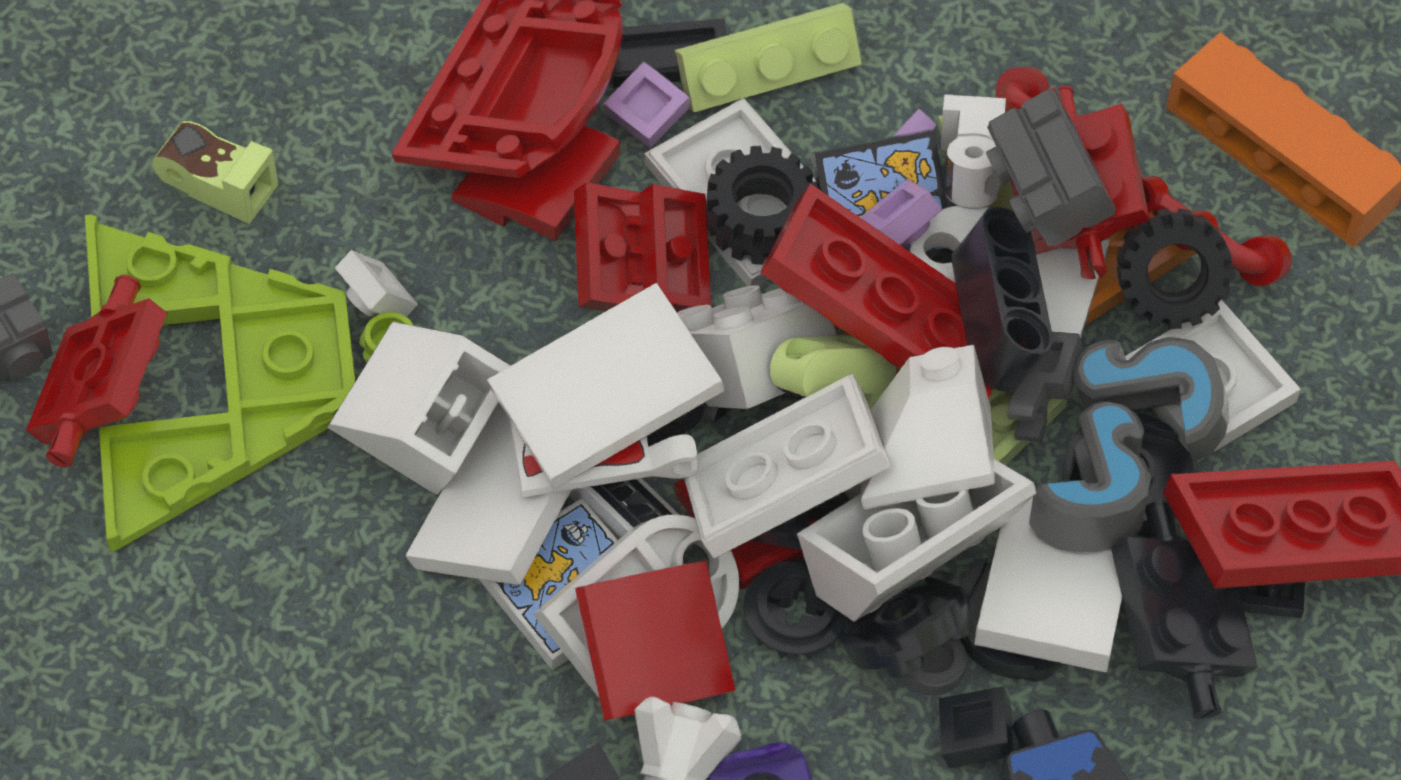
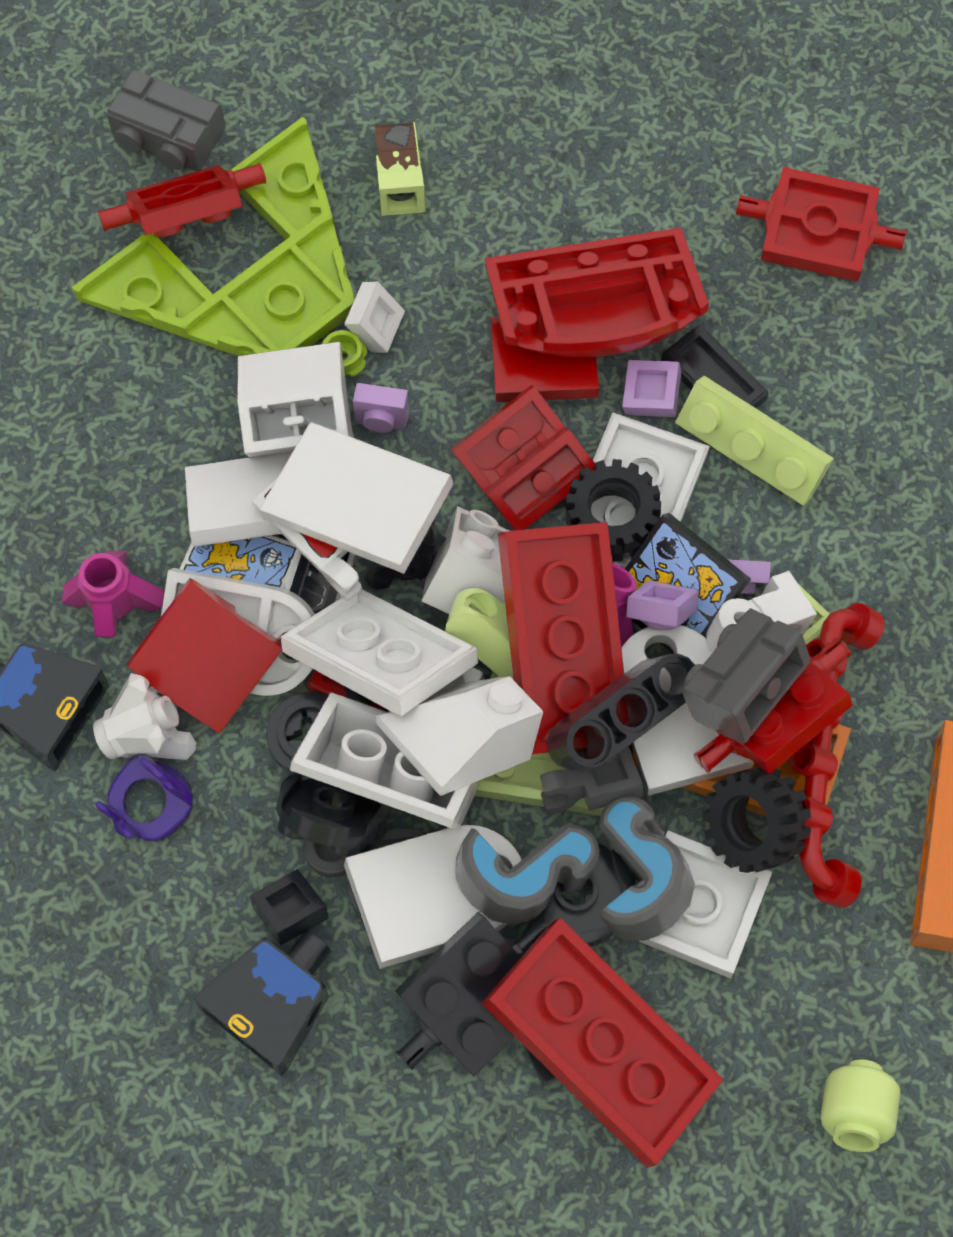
camera: 60 degrees right, 10 degrees up
(492, 328) = (381, 407): none -> lavender plate
(500, 700) = (110, 591): none -> dark pink rock

